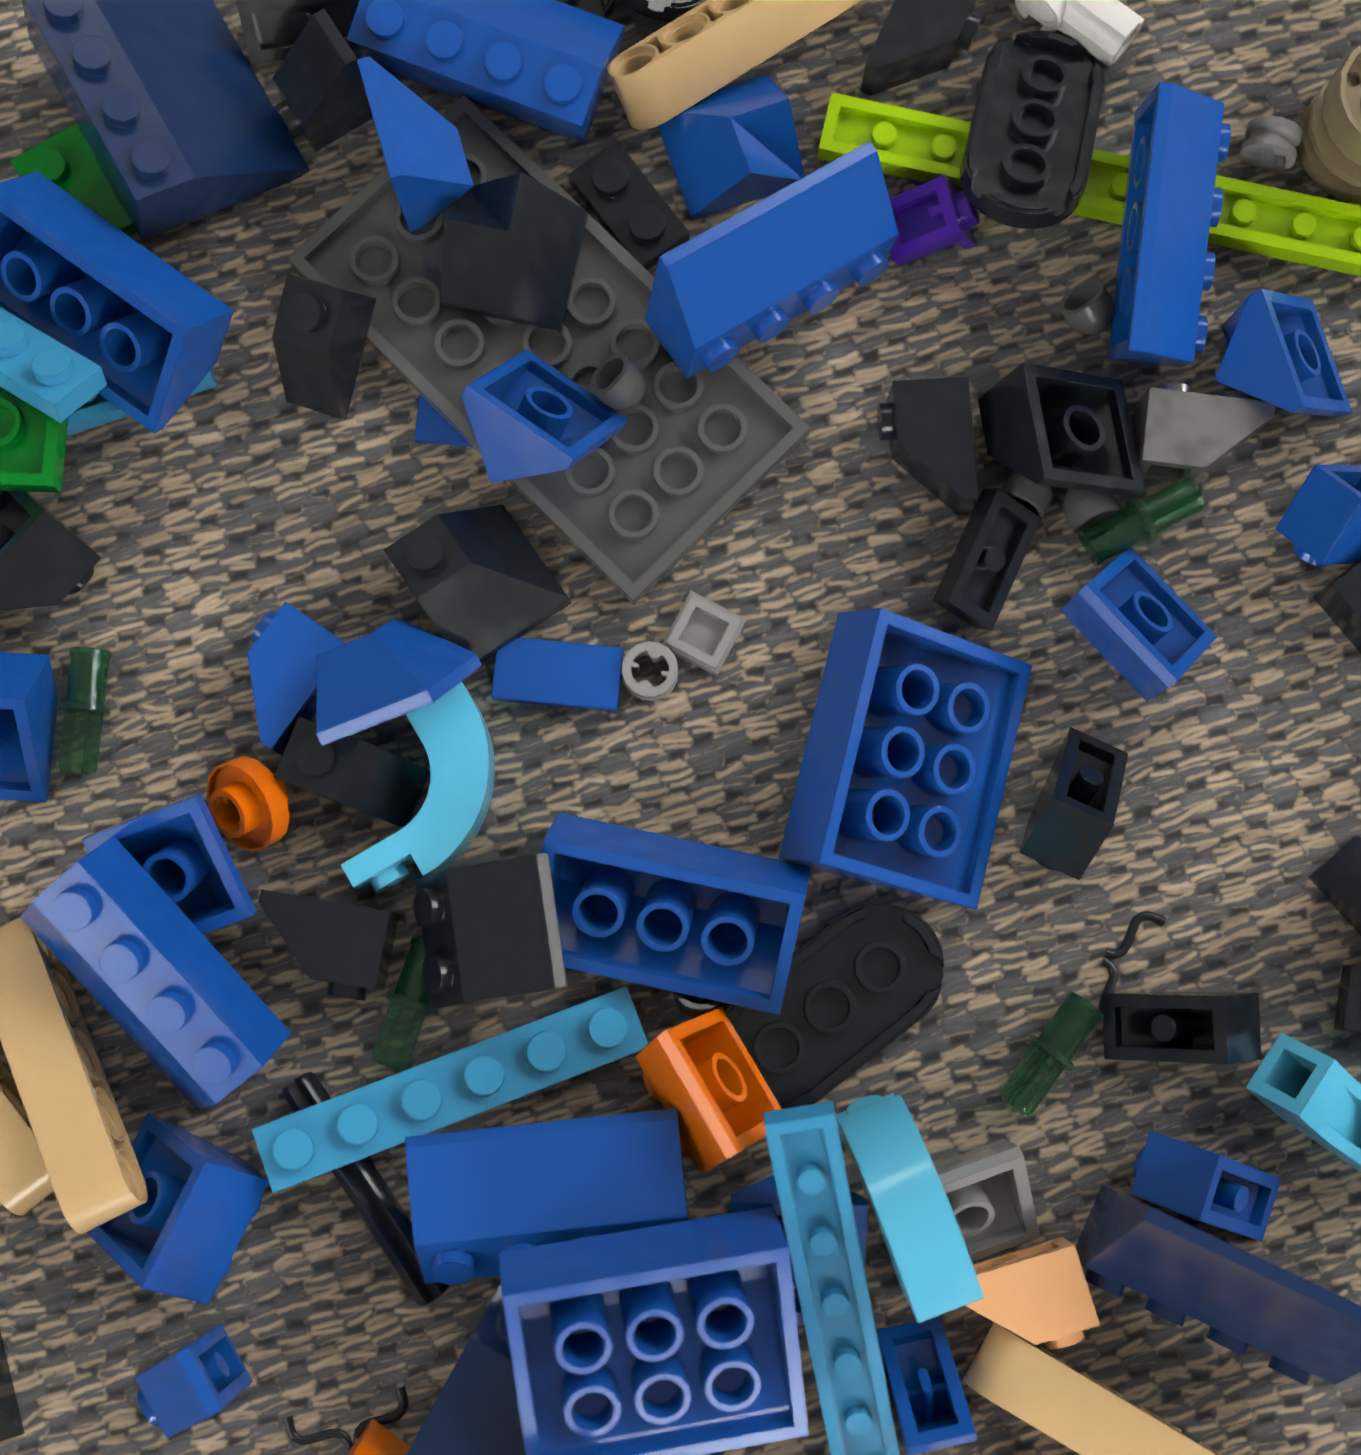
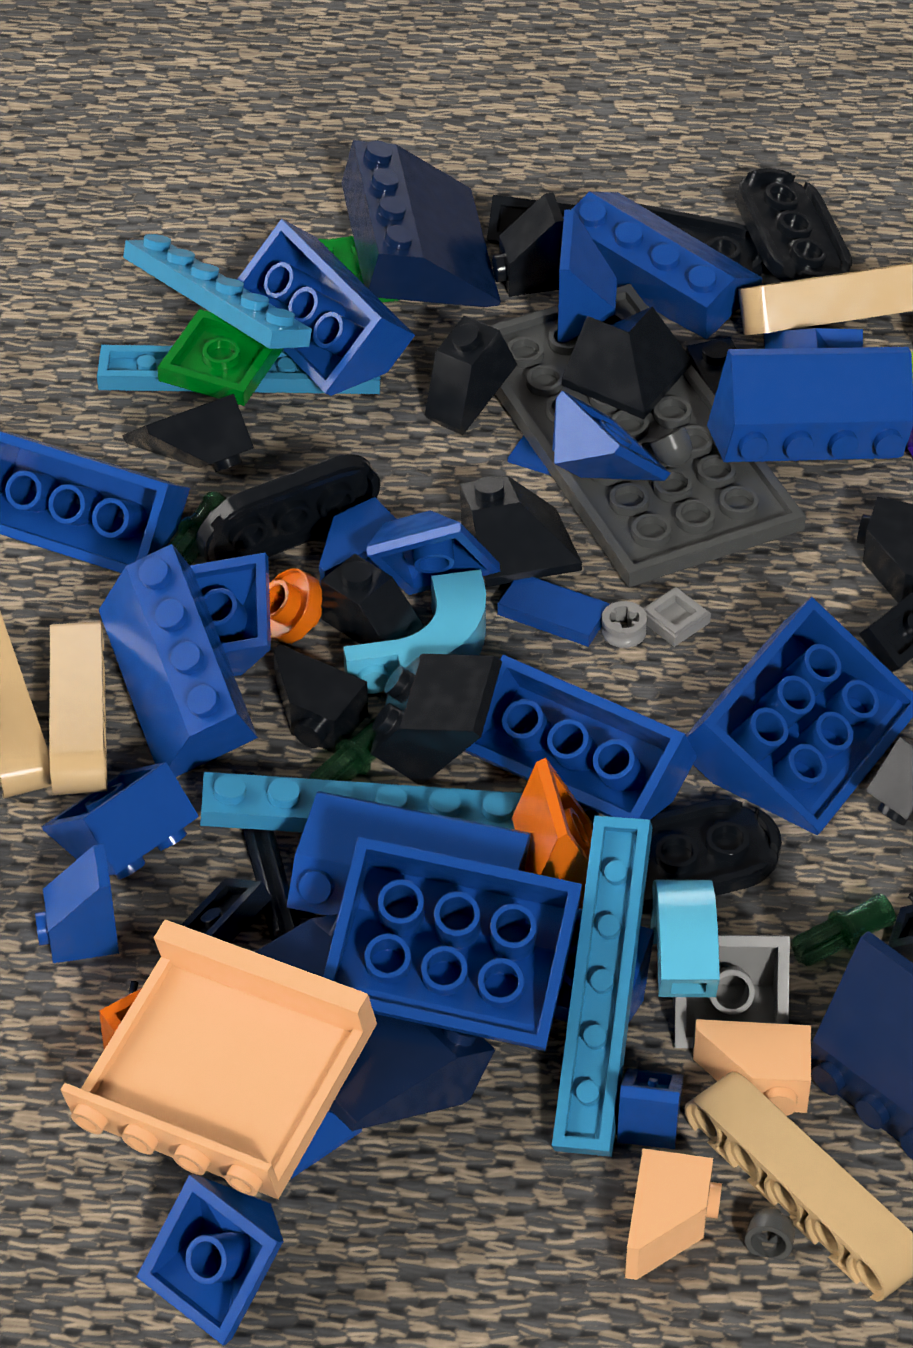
camera: 20 degrees right, 35 degrees down
(188, 665) = (286, 509): none -> black tile
(349, 1321) = (229, 909): none -> black plate

